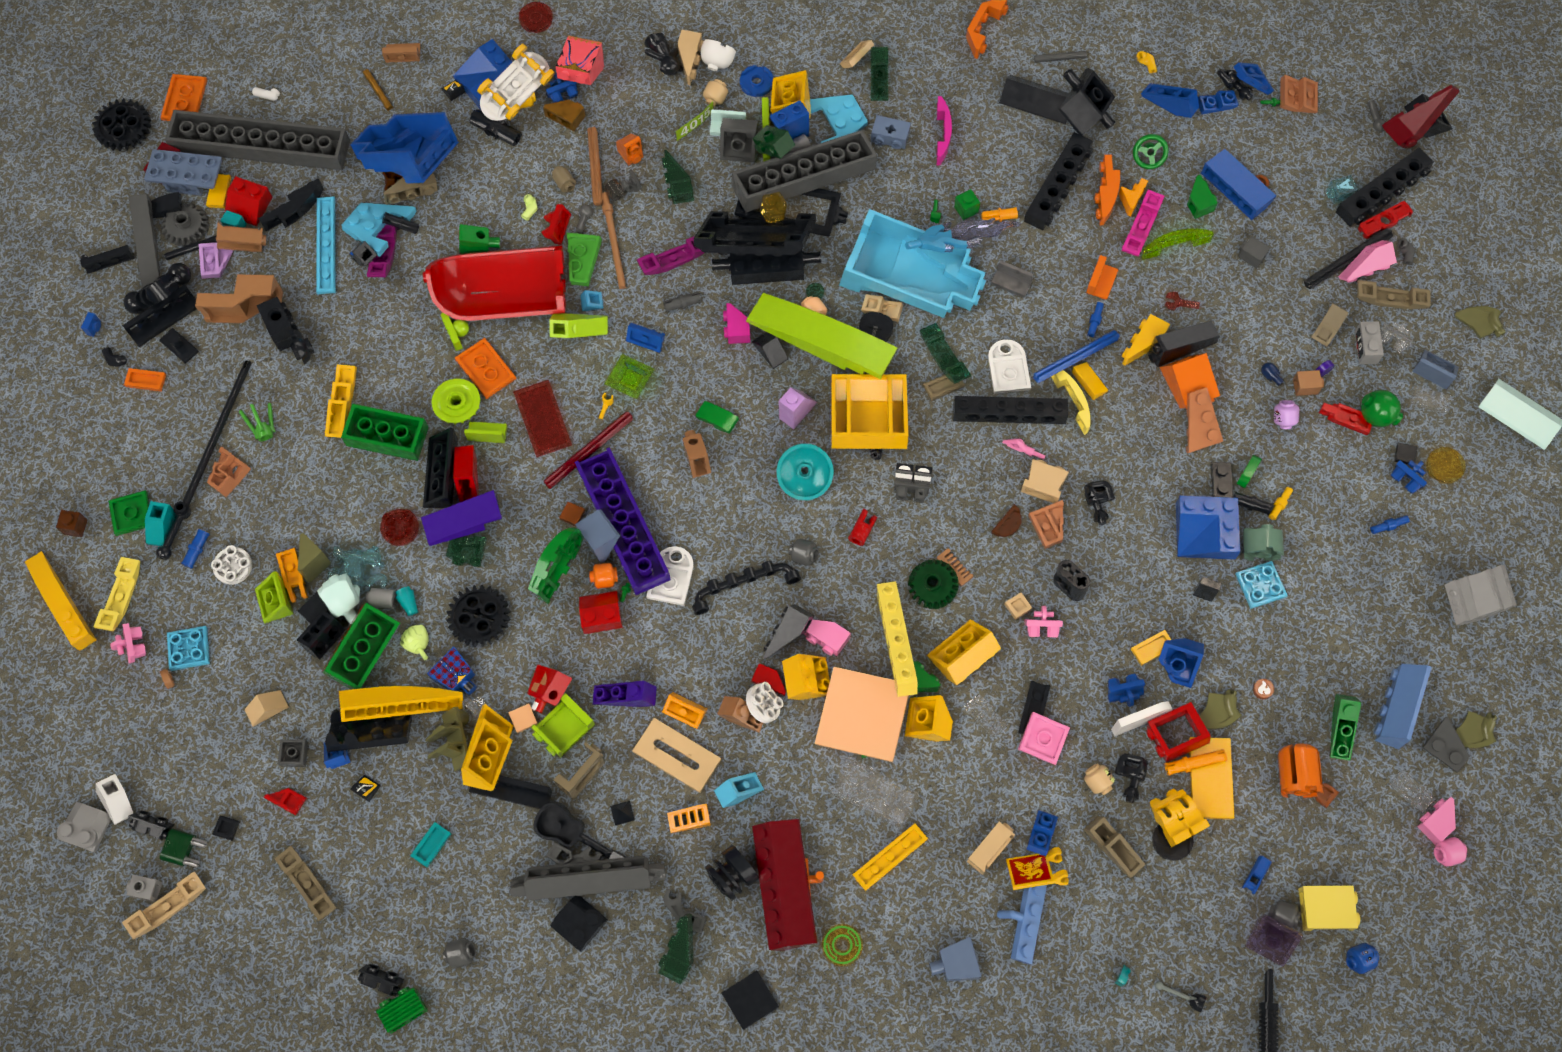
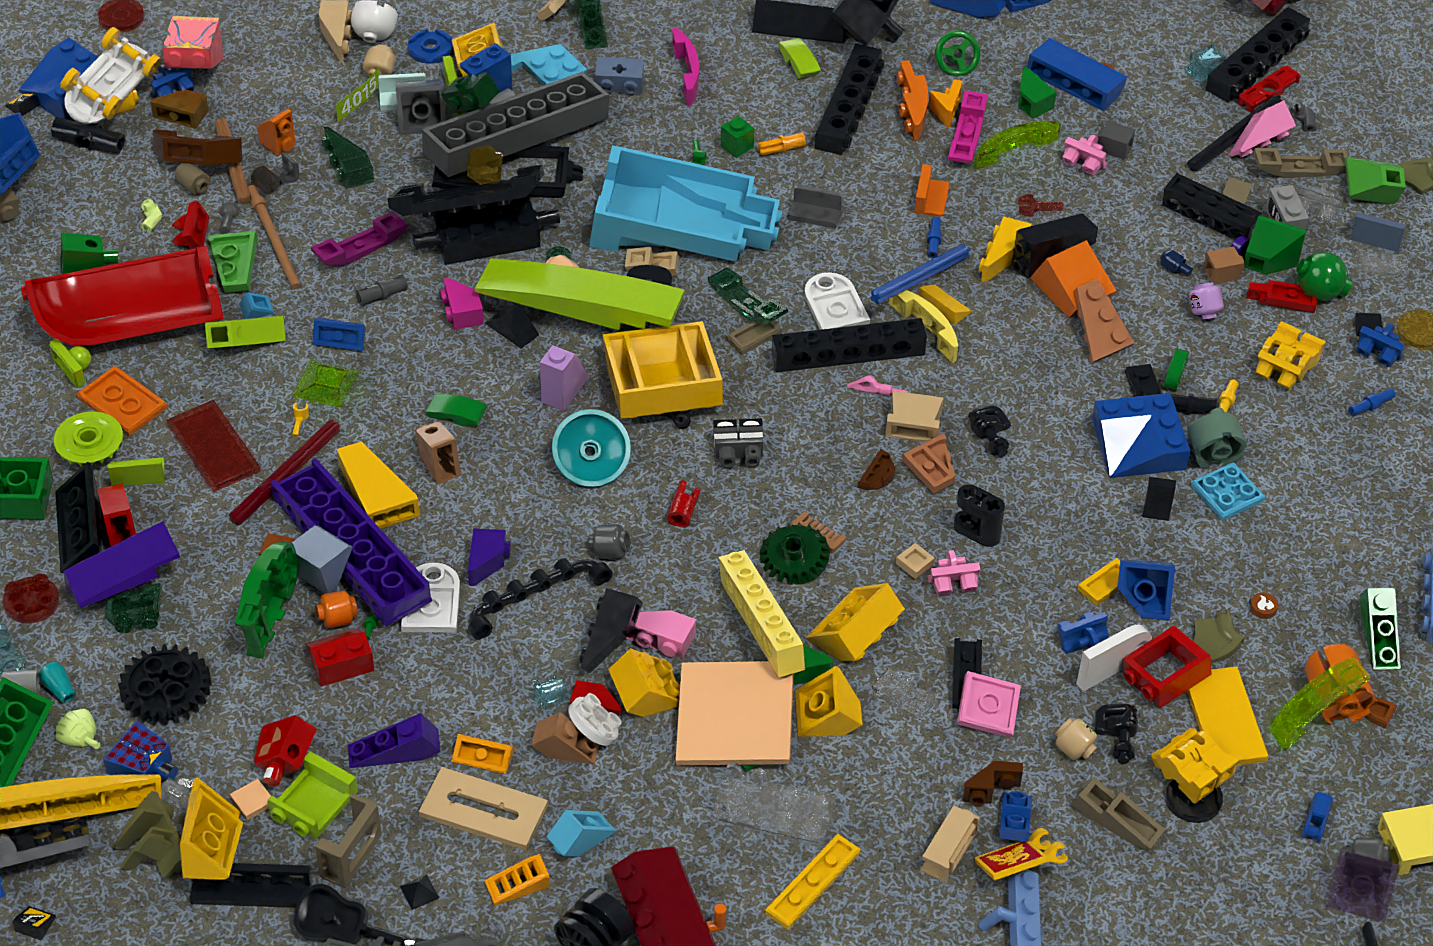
camera: 15 degrees left, 20 degrees down
(584, 162) = (196, 150): none -> reddish brown slope
(648, 479) = (376, 487): none -> yellow slope
(660, 51) = (296, 25): black piece -> none
(715, 547) = (487, 553): none -> dark purple slope
(739, 669) = (549, 690): none -> clear light blue brick
(958, 237) = (738, 163): piece -> none
(1023, 806) = (980, 787): none -> reddish brown slope
(1030, 135) = (800, 56): none -> lime slope
(1187, 764) = (1189, 701): light orange pin -> none
(1232, 266) = (1086, 150): none -> bright pink hips
(1279, 787) = (1315, 697): none -> clear neon green slope
(1311, 329) = (1210, 205): none -> black fence
(1339, 474) = (1289, 355): none -> yellow hips
(1349, 375) = (1274, 246): none -> green slope
(1445, 322) = (1374, 180): none -> bright green slope

